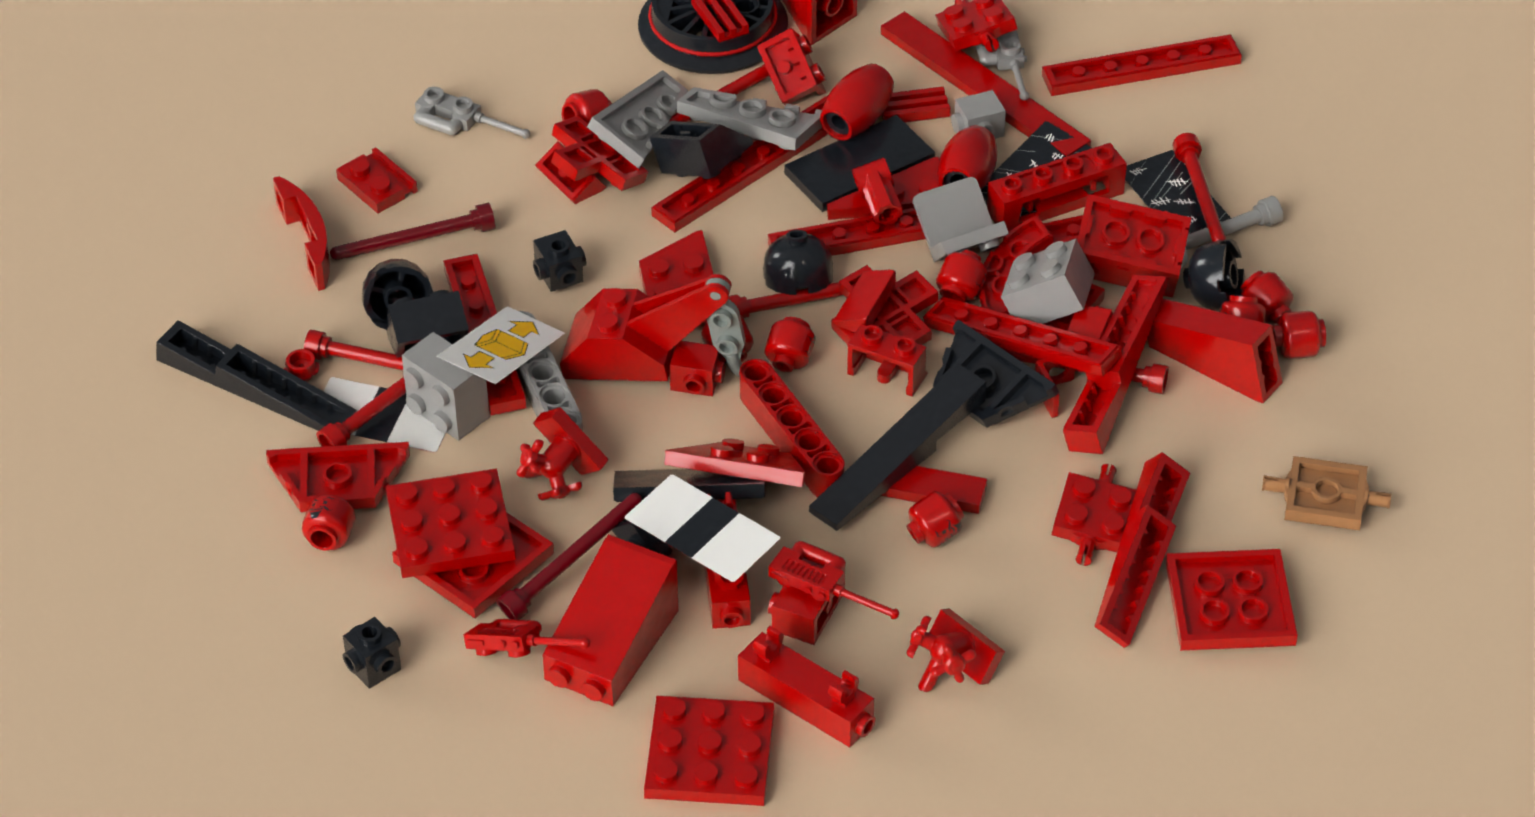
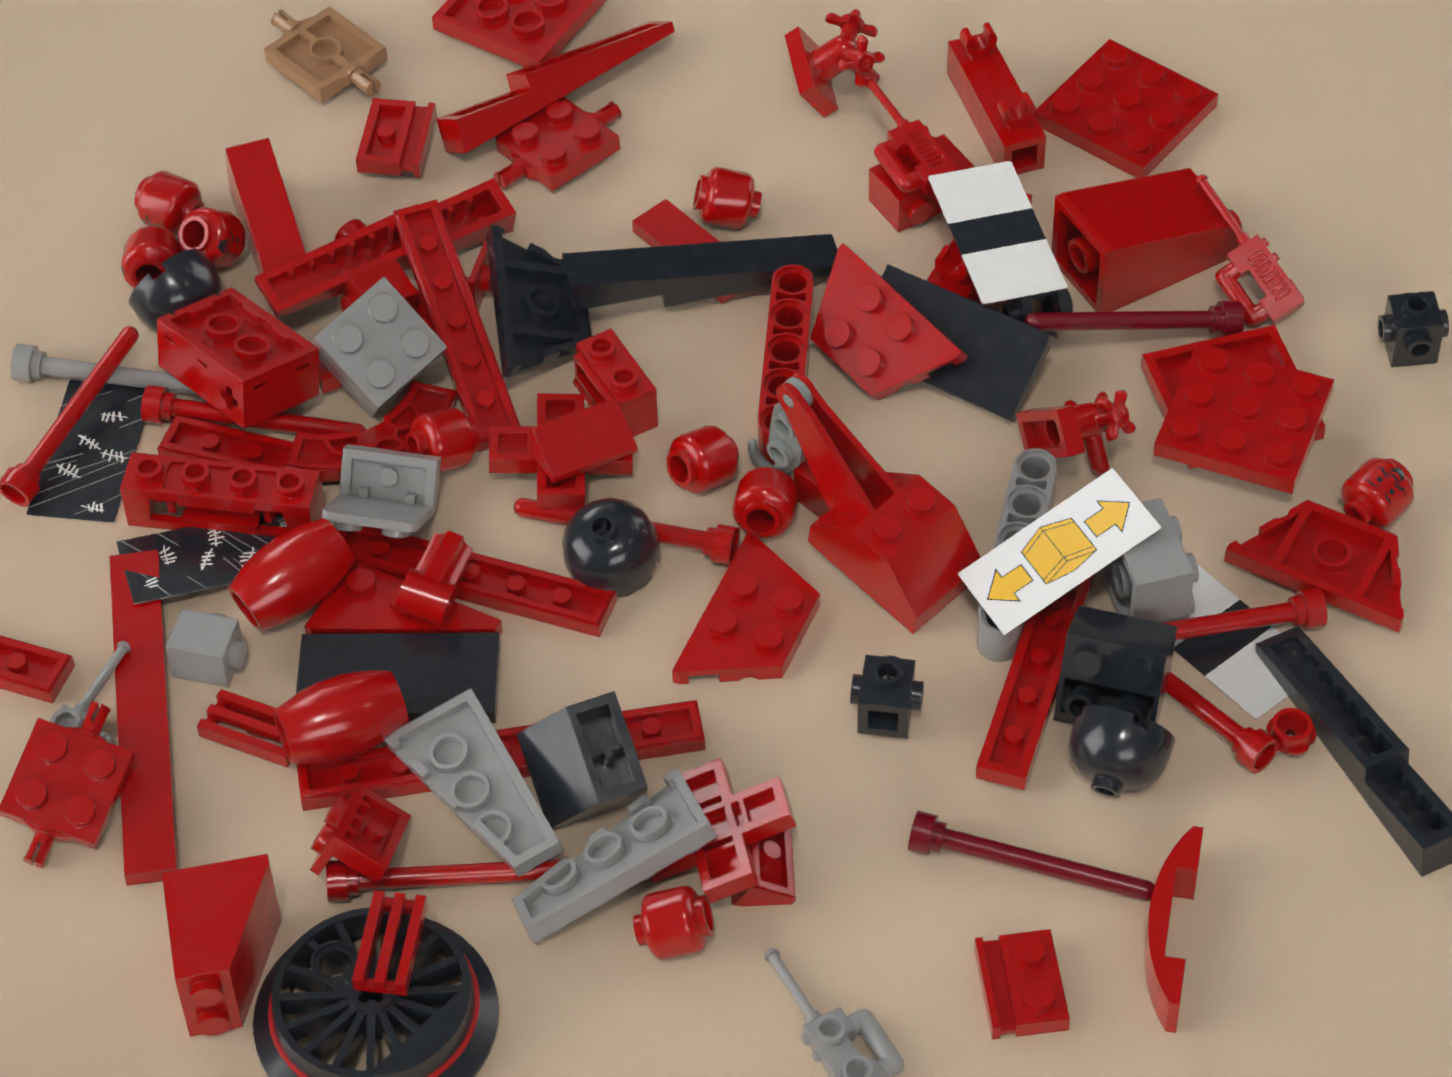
camera: 145 degrees left, 5 degrees up
(1209, 458) = (395, 137): none -> red plate

